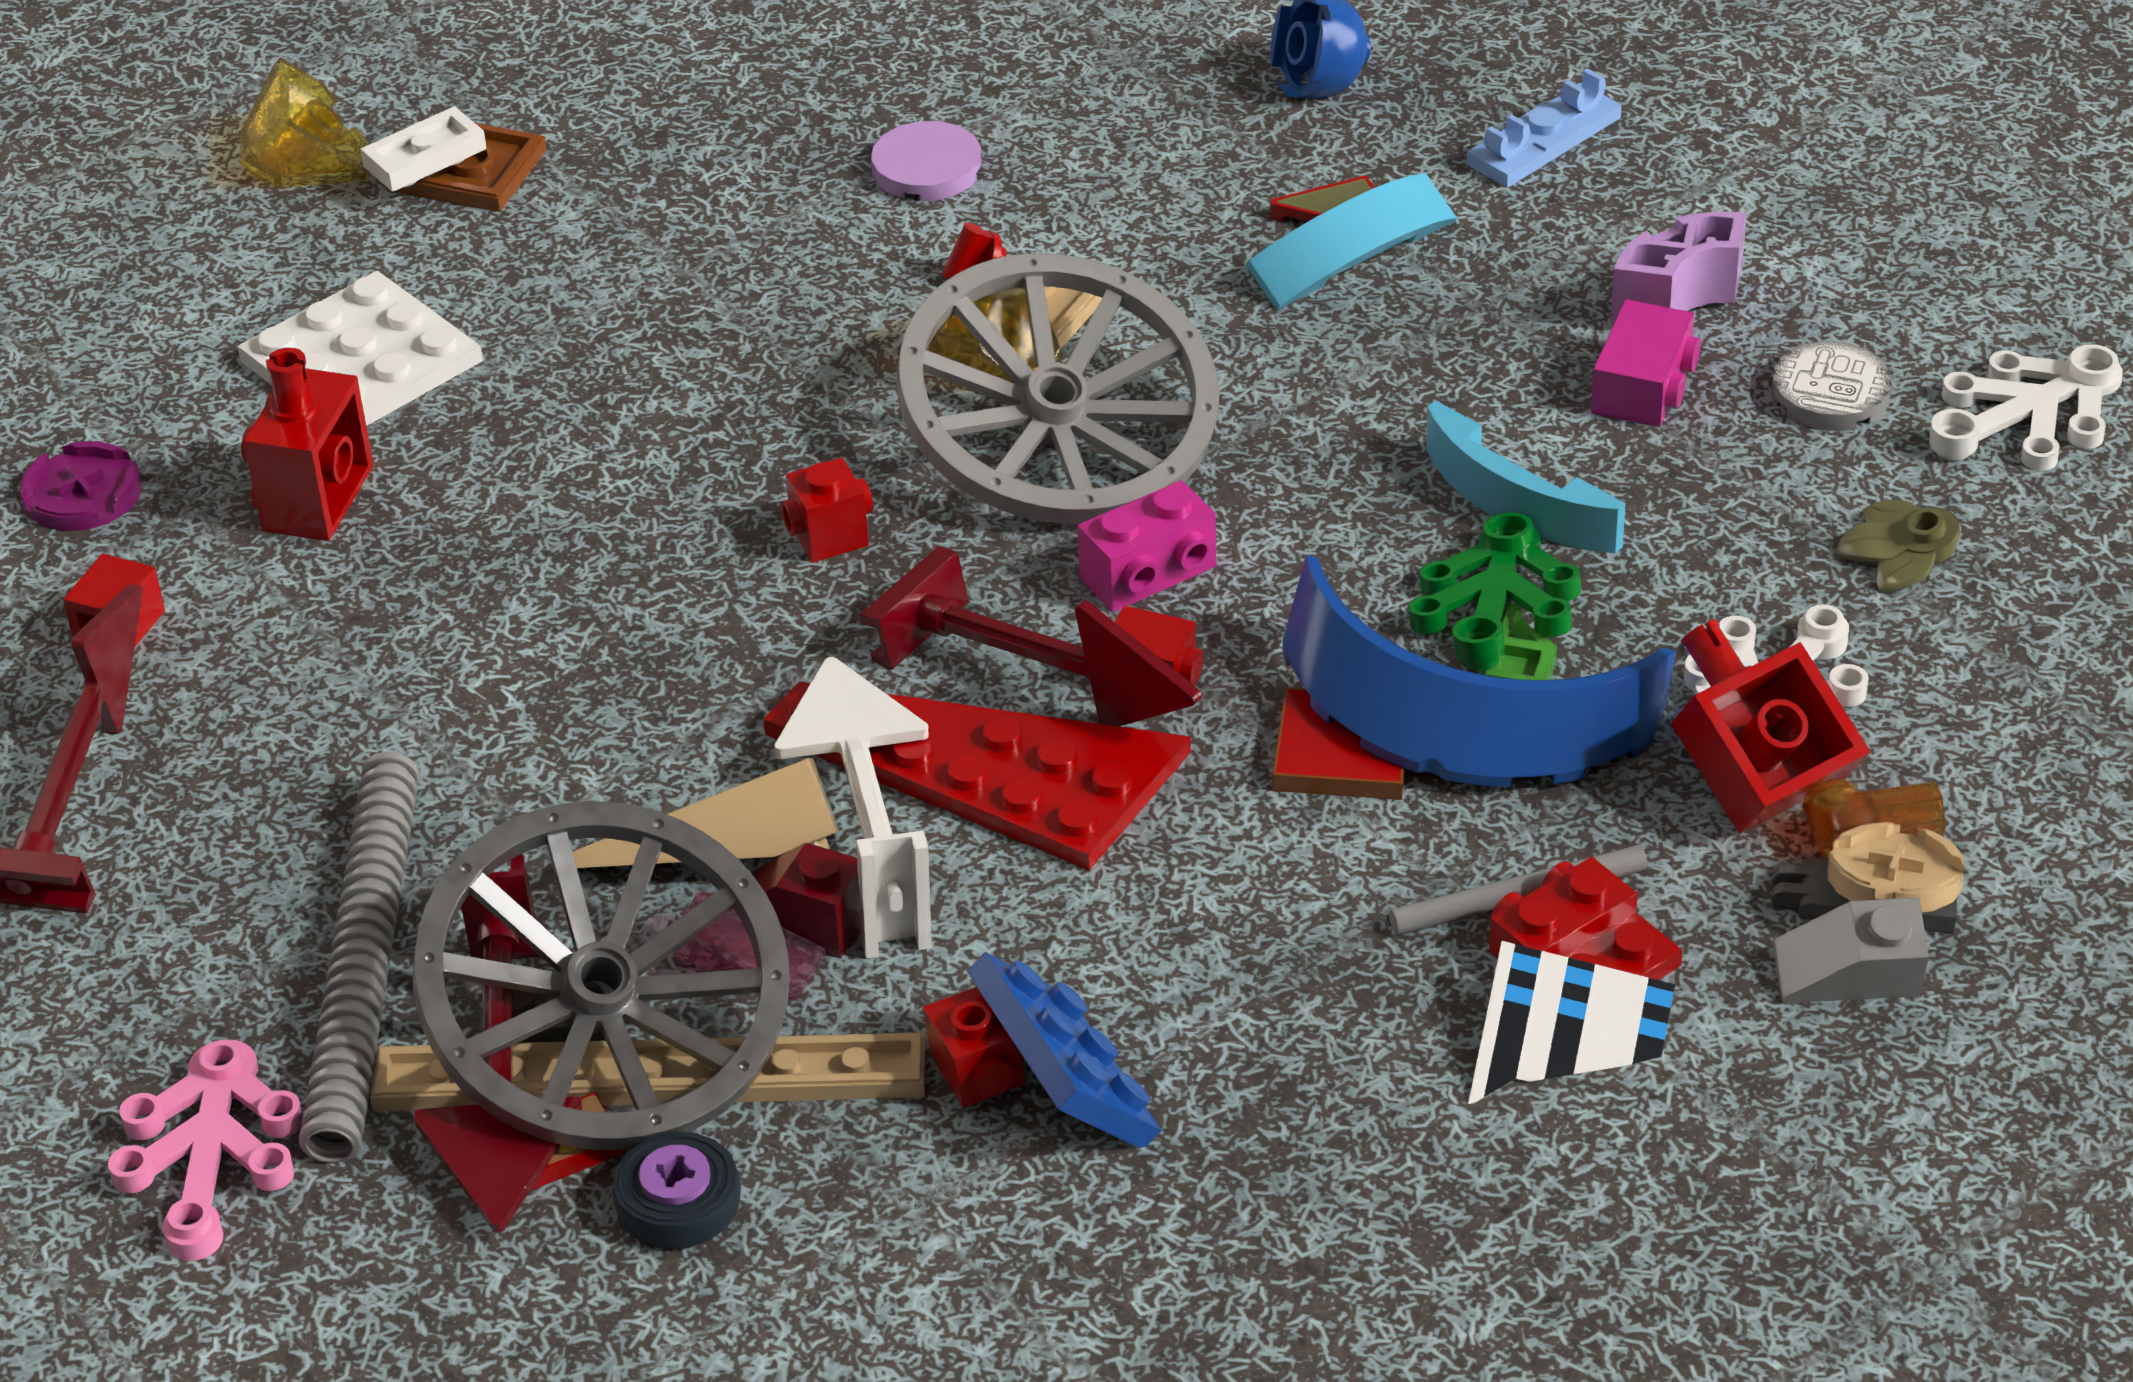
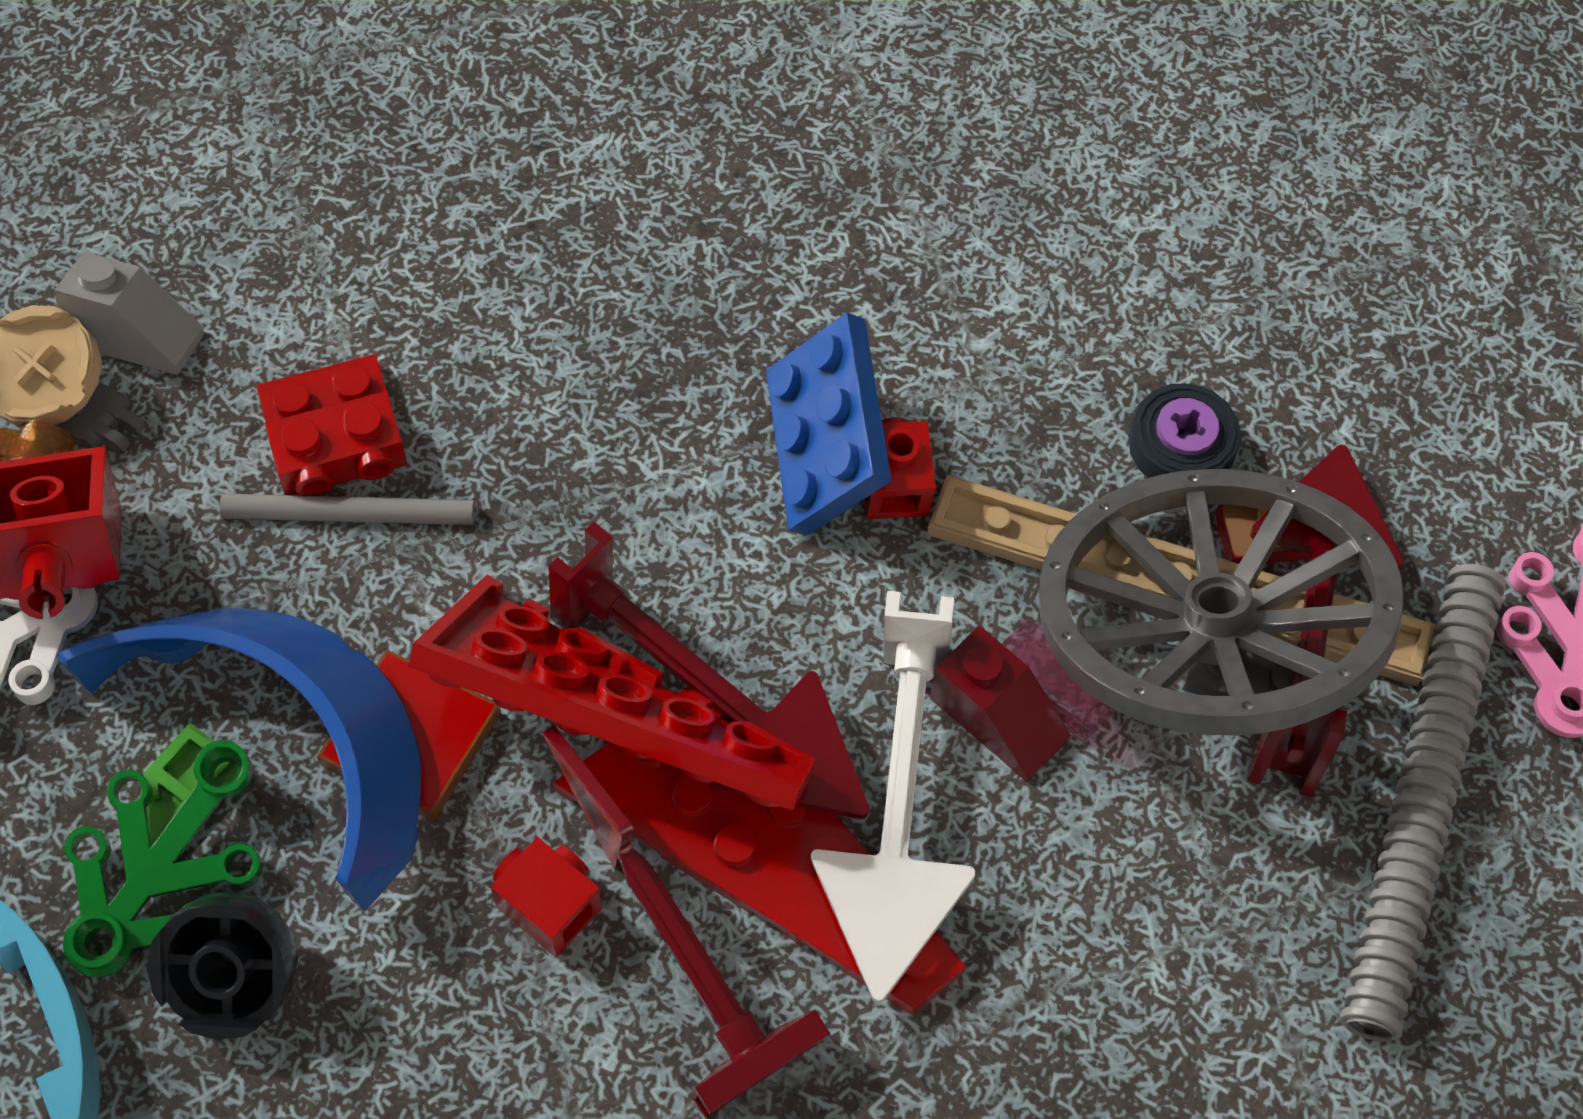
camera: 165 degrees left, 20 degrees up
(748, 820) = (1053, 822): tan wedge -> none
(984, 791) = (799, 718): none -> dark red piece
(1147, 545) = (477, 1054): dark pink brick -> none
(1208, 752) = (601, 692): none -> red wing
(1385, 535) = (223, 964): none -> black cylinder
(1566, 1019) = (391, 352): sticker -> none

